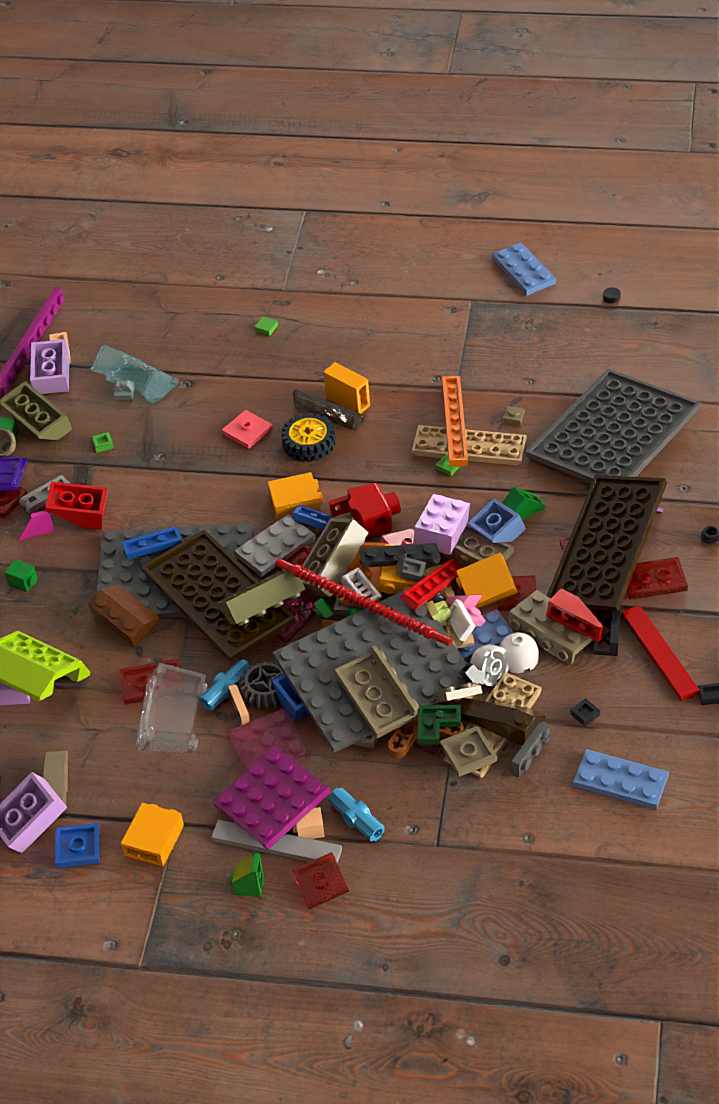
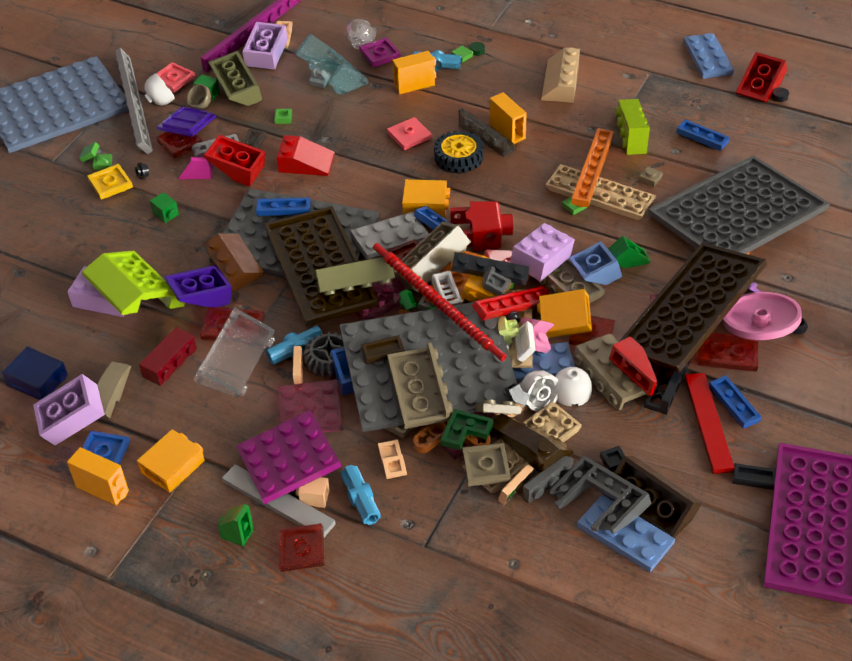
camera: 15 degrees right, 0 degrees up
(88, 870) = (98, 476): none -> light orange brick
(100, 731) = (167, 356): none -> dark red brick
(105, 649) = (201, 287): none -> dark purple slope
(147, 483) = (303, 157): none -> red slope
(148, 329) = (359, 33): none -> clear cylinder
(177, 344) = (379, 52): none -> magenta plate
(226, 360) = (414, 72): none -> light orange brick
(243, 340) = (445, 60): none -> dark azure piece
(280, 315) = (478, 48): none -> dark green tile
(325, 665) = (379, 349): none -> dark brown tile
(371, 772) = (392, 459): none -> light nougat slope
(382, 327) = (561, 76): none -> tan slope
(477, 366) = (632, 126): none -> lime wedge
(501, 763) = (515, 484): none -> light nougat tile
(550, 358) = (703, 135): none -> blue plate
(588, 281) = (762, 77): none -> red slope
(616, 747) = (629, 499): none -> dark grey wedge
(633, 737) = (670, 505): none -> dark brown slope
(677, 626) = (734, 402): none -> blue plate
(678, 534) = (763, 316): none -> bright pink dish

